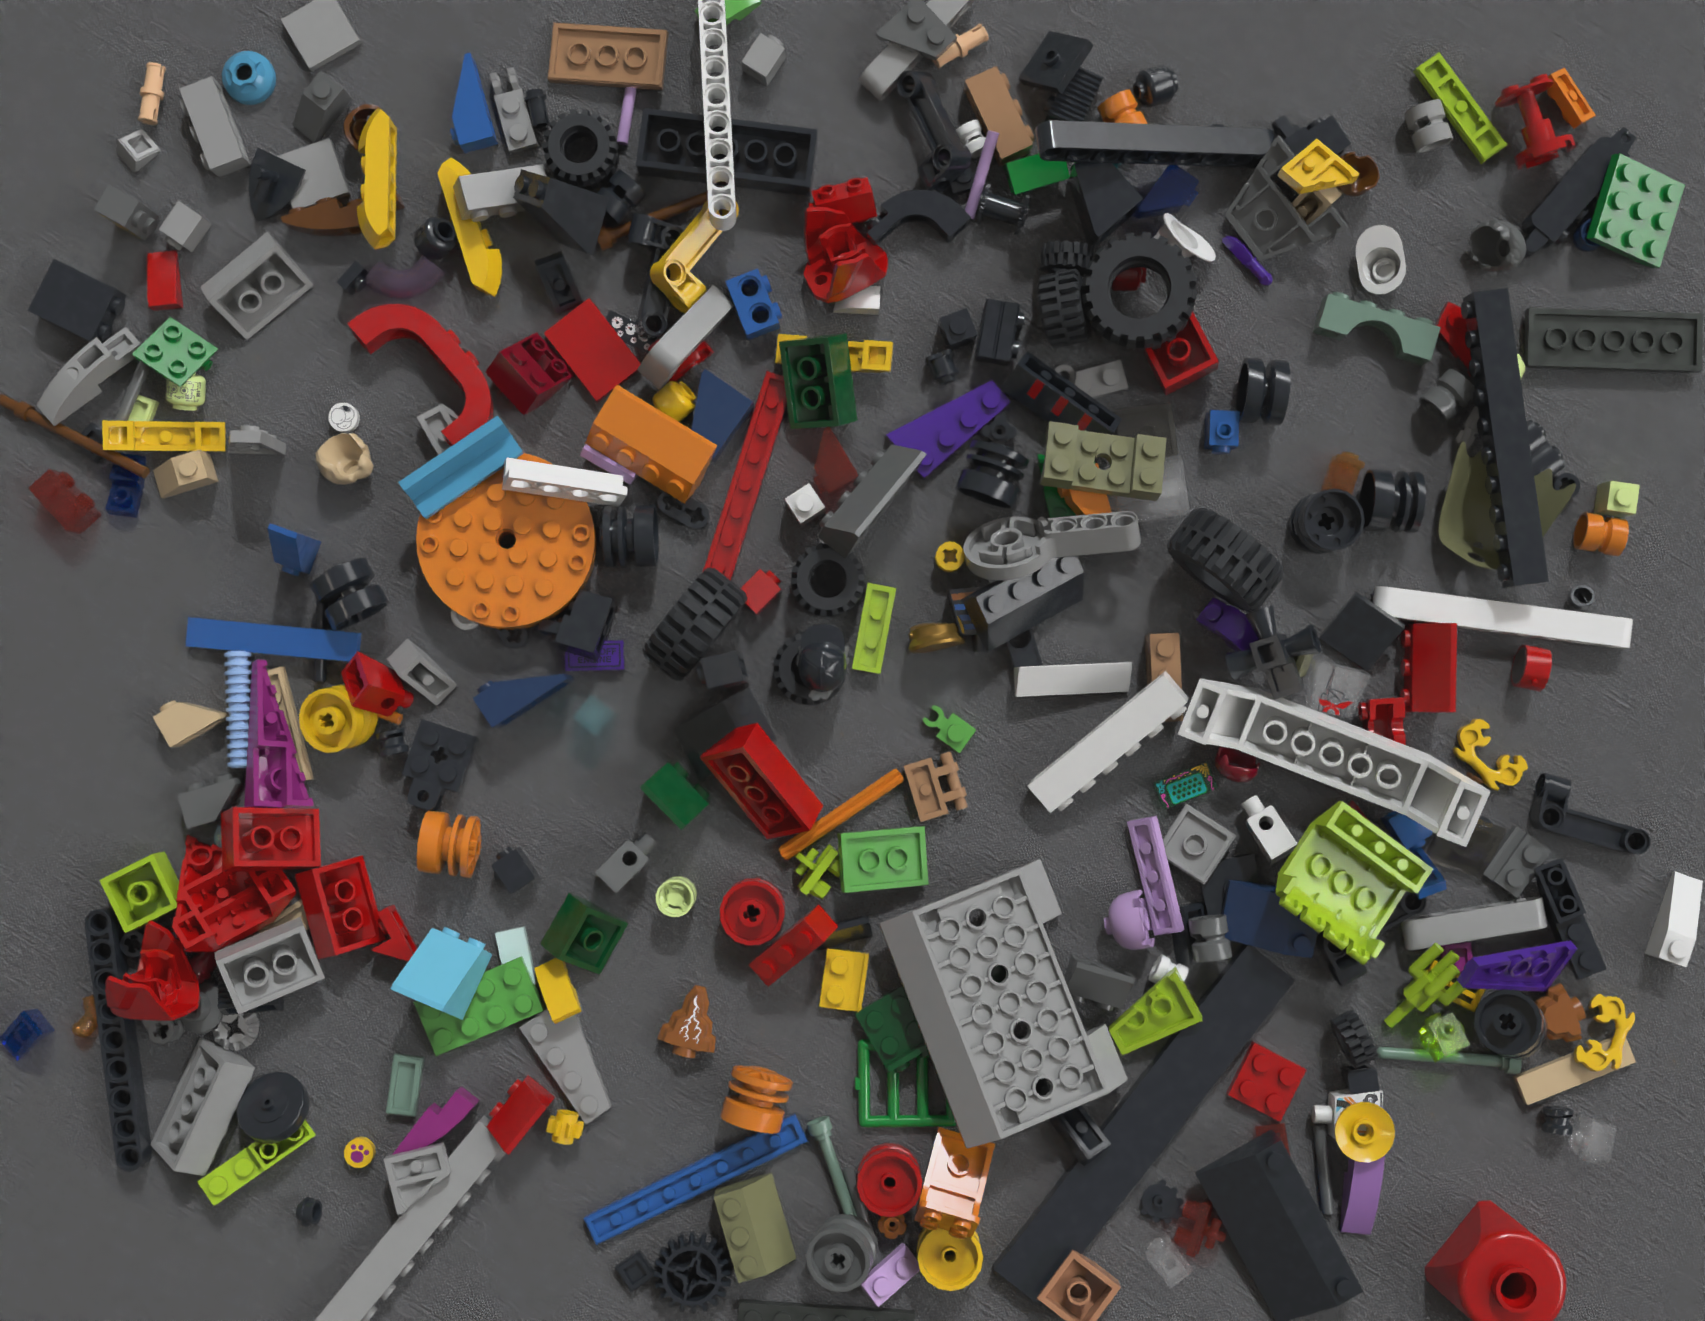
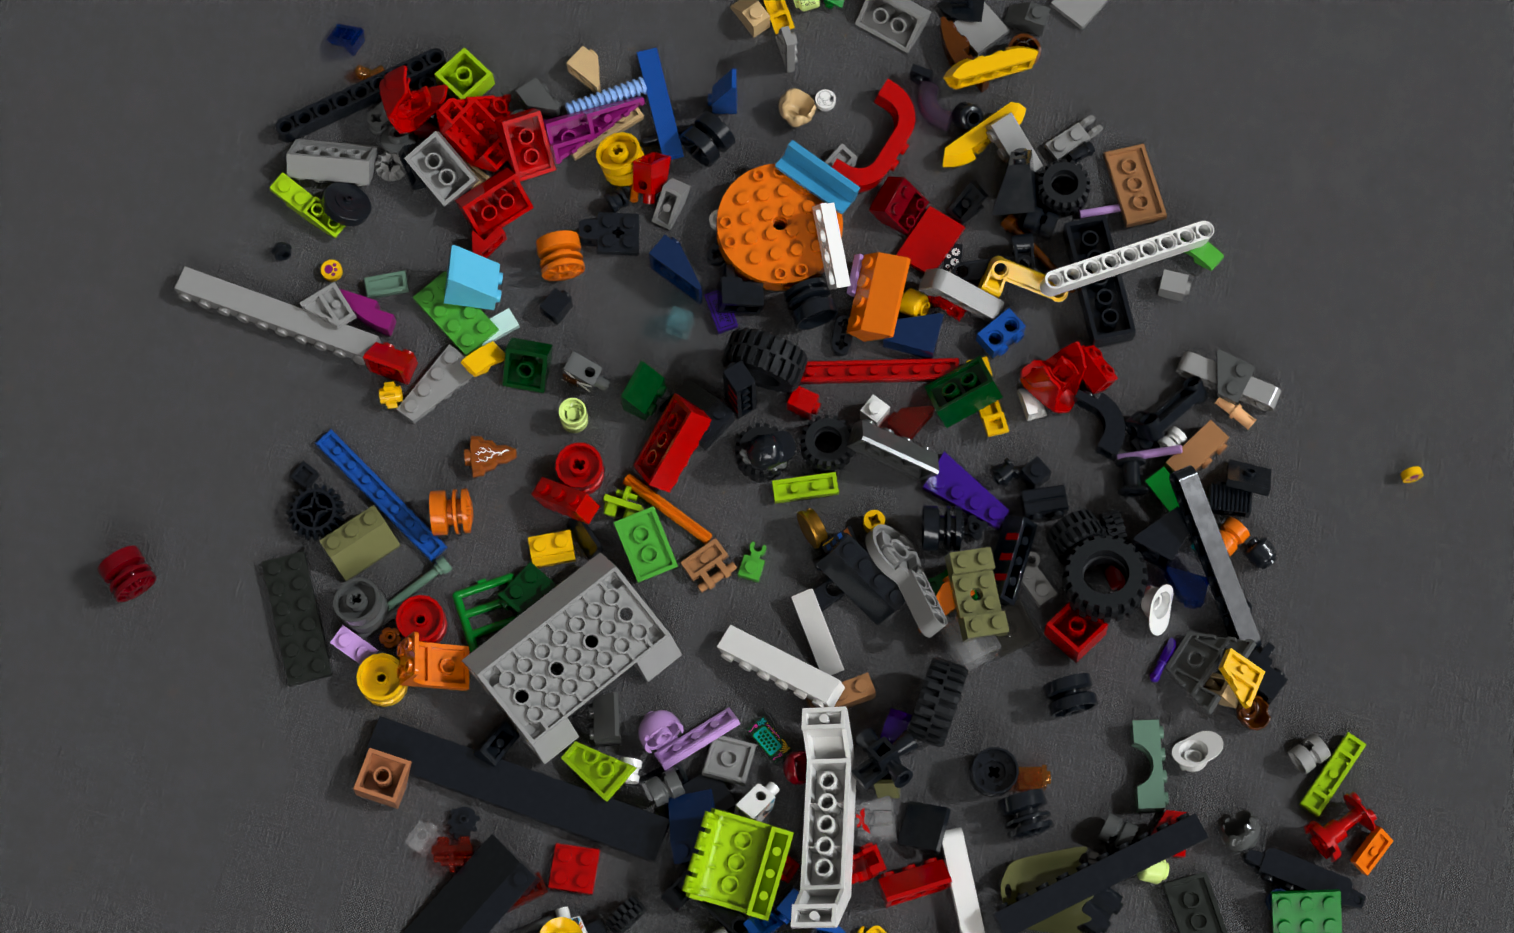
camera: 75 degrees right, 15 degrees down
(471, 115) = (1061, 111): blue slope -> none
(1221, 431) = (1031, 679): blue brick -> none

